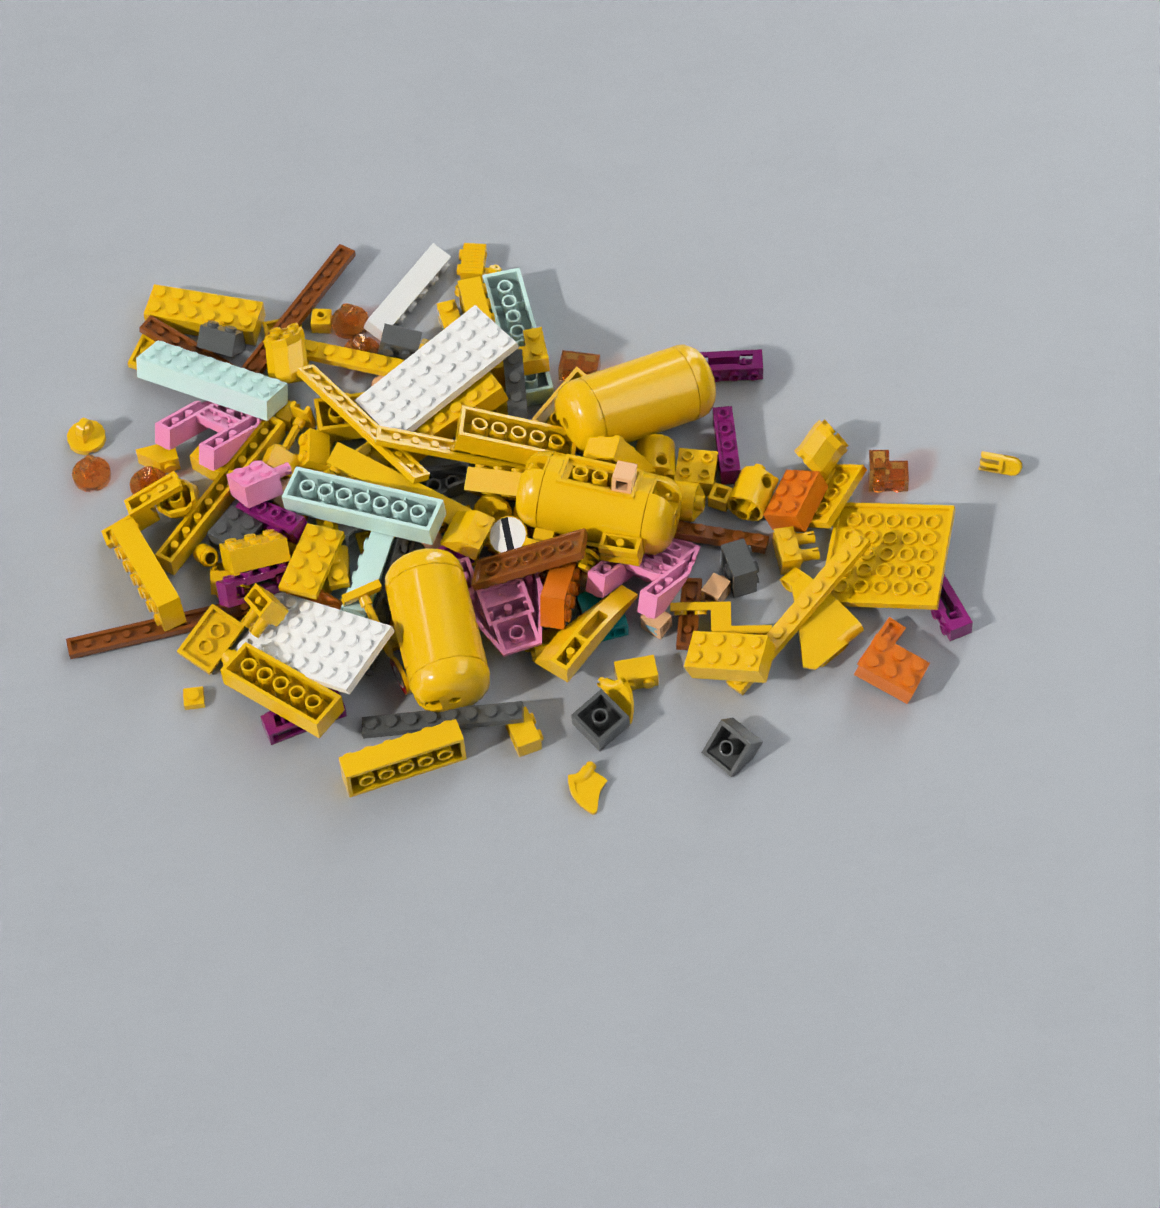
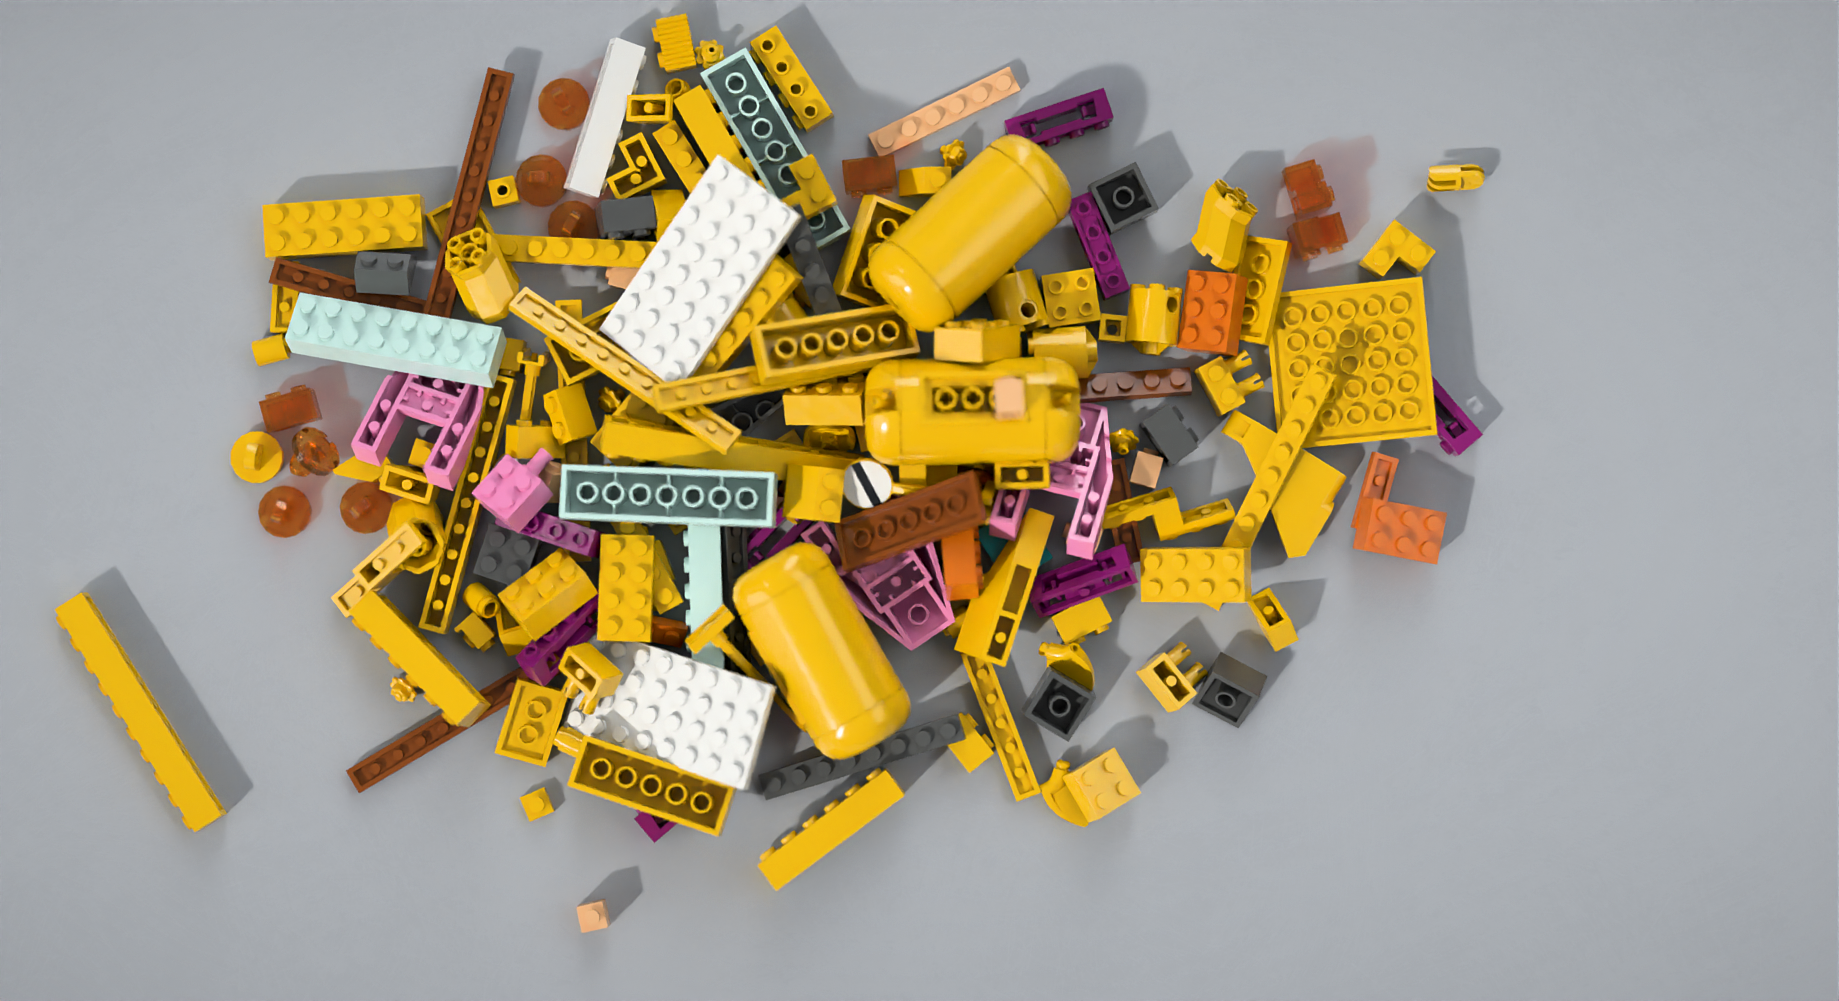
camera: 20 degrees left, 30 degrees up
(121, 412) = (290, 409): none -> clear orange brick
(124, 374) = (271, 350): none -> yellow brick
(126, 437) = (313, 453): none -> clear orange tile
(128, 599) = (402, 690): none -> yellow plant
(188, 470) = (408, 483): none -> yellow slope
(194, 575) = (477, 632): none -> yellow brick
(205, 775) = (593, 915): none -> light nougat brick
(381, 280) = (564, 104): none -> clear orange tile
(421, 319) = (643, 172): none -> yellow brick
(440, 289) = (650, 108): none -> yellow slope
(545, 300) = (791, 79): none -> yellow brick
(553, 728) = (1001, 727): none -> yellow plate
(614, 780) = (1101, 785): none -> yellow brick
(644, 643) = (1082, 580): none -> magenta brick
(645, 345) = (944, 112): none -> light nougat plate
(686, 725) = (1167, 682): none -> yellow brick
(704, 568) = (1123, 441): none -> yellow plant
(754, 419) = (1123, 198): none -> dark grey brick
(779, 709) = (1272, 619): none -> yellow slope
(890, 438) = (1306, 191): none -> clear orange brick
(944, 492) = (1397, 245): none -> yellow brick

